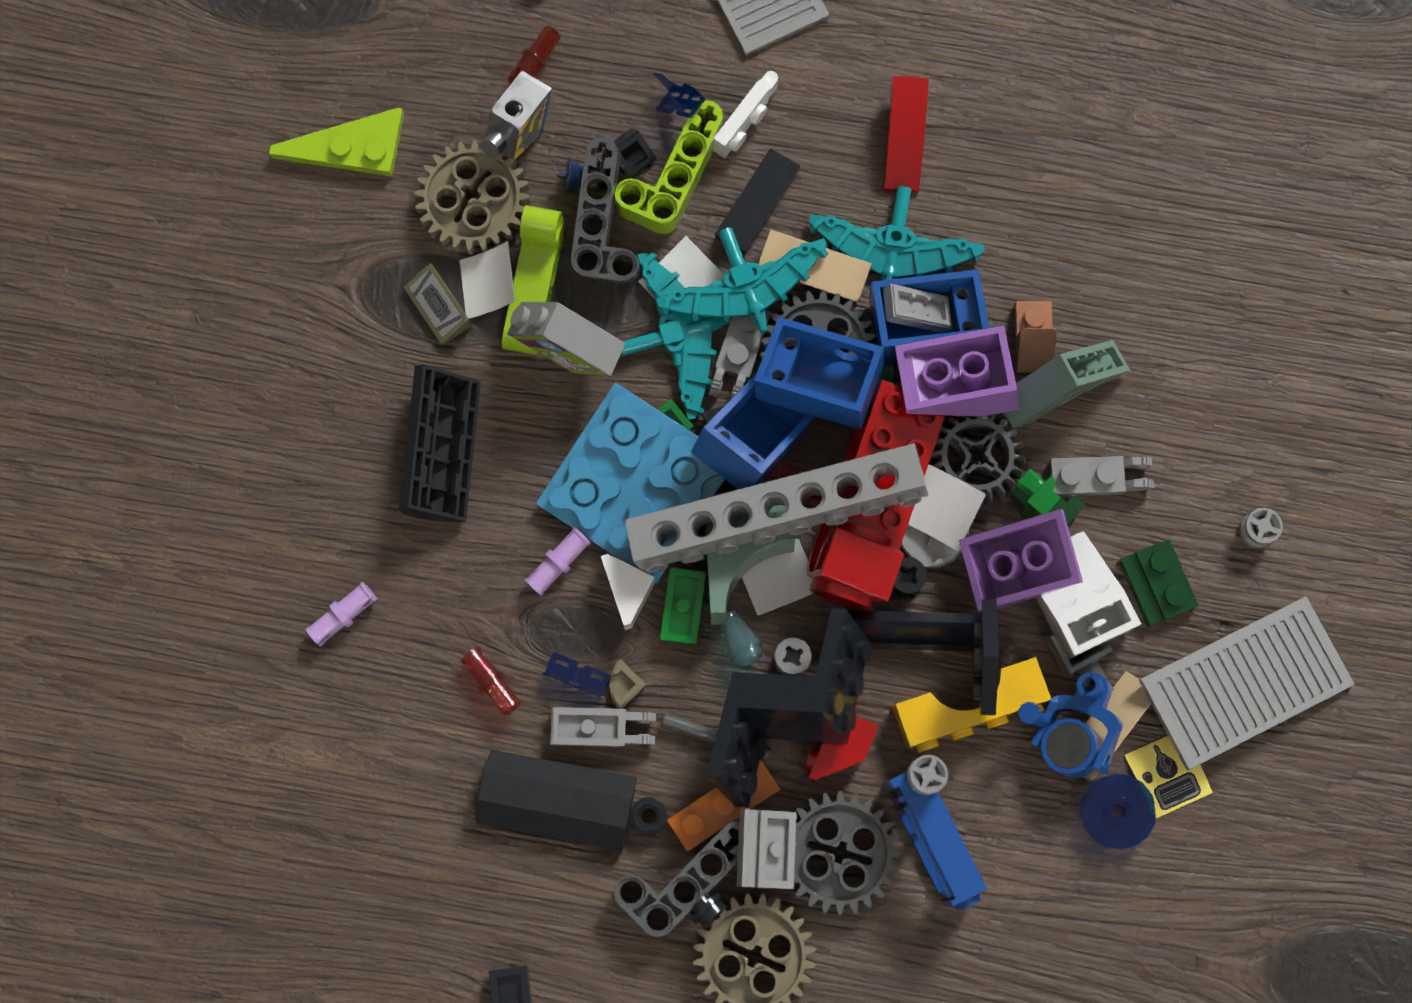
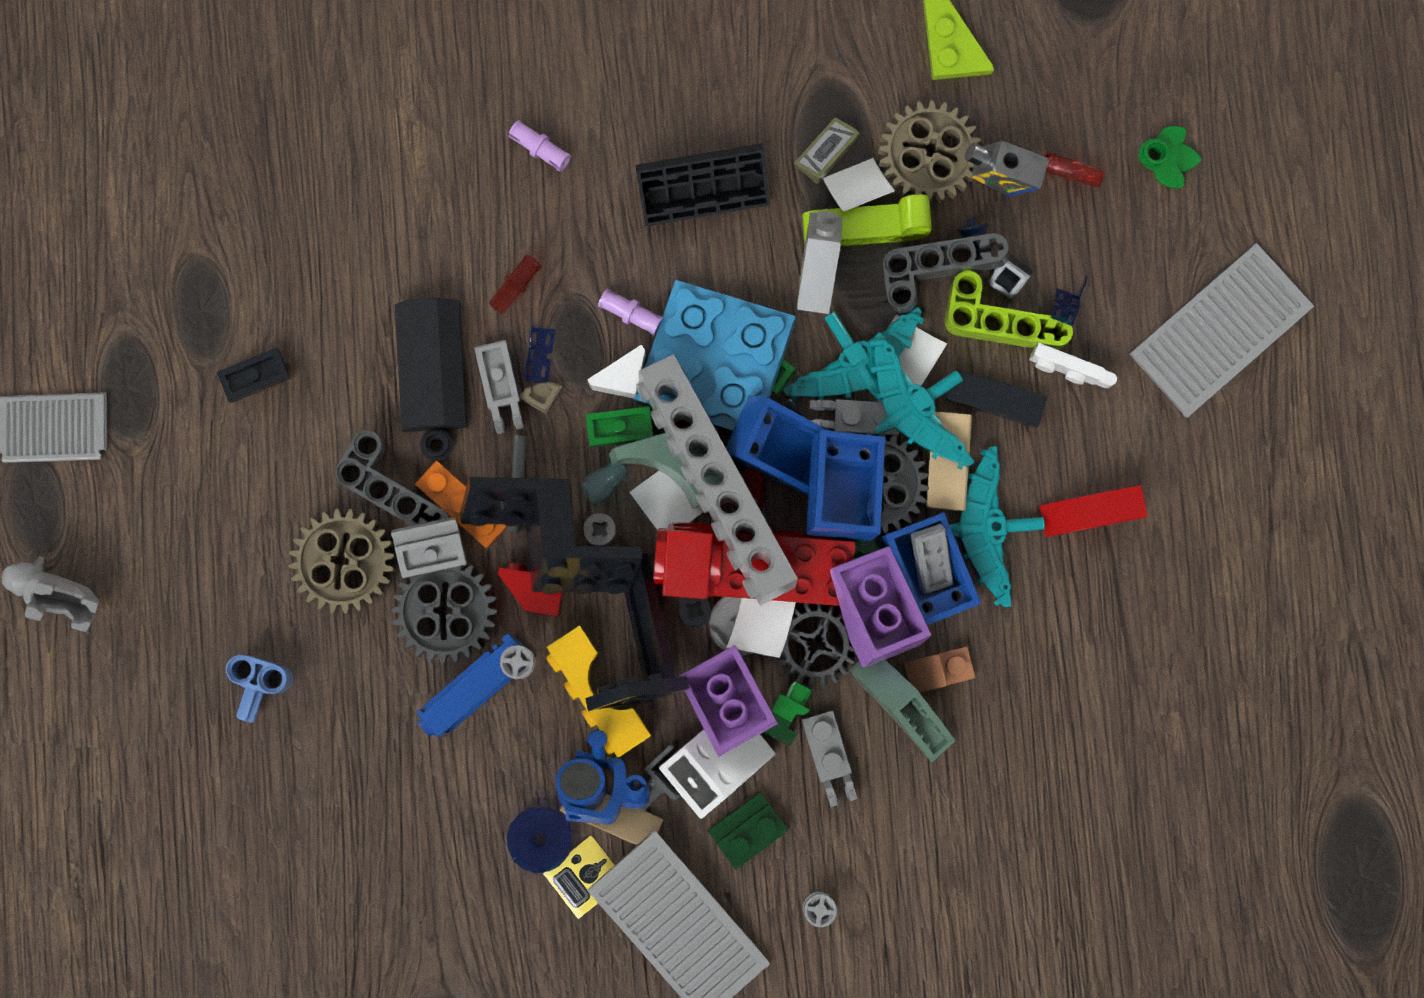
camera: 70 degrees right, 5 degrees up
(707, 909) = (367, 511): black plate -> none

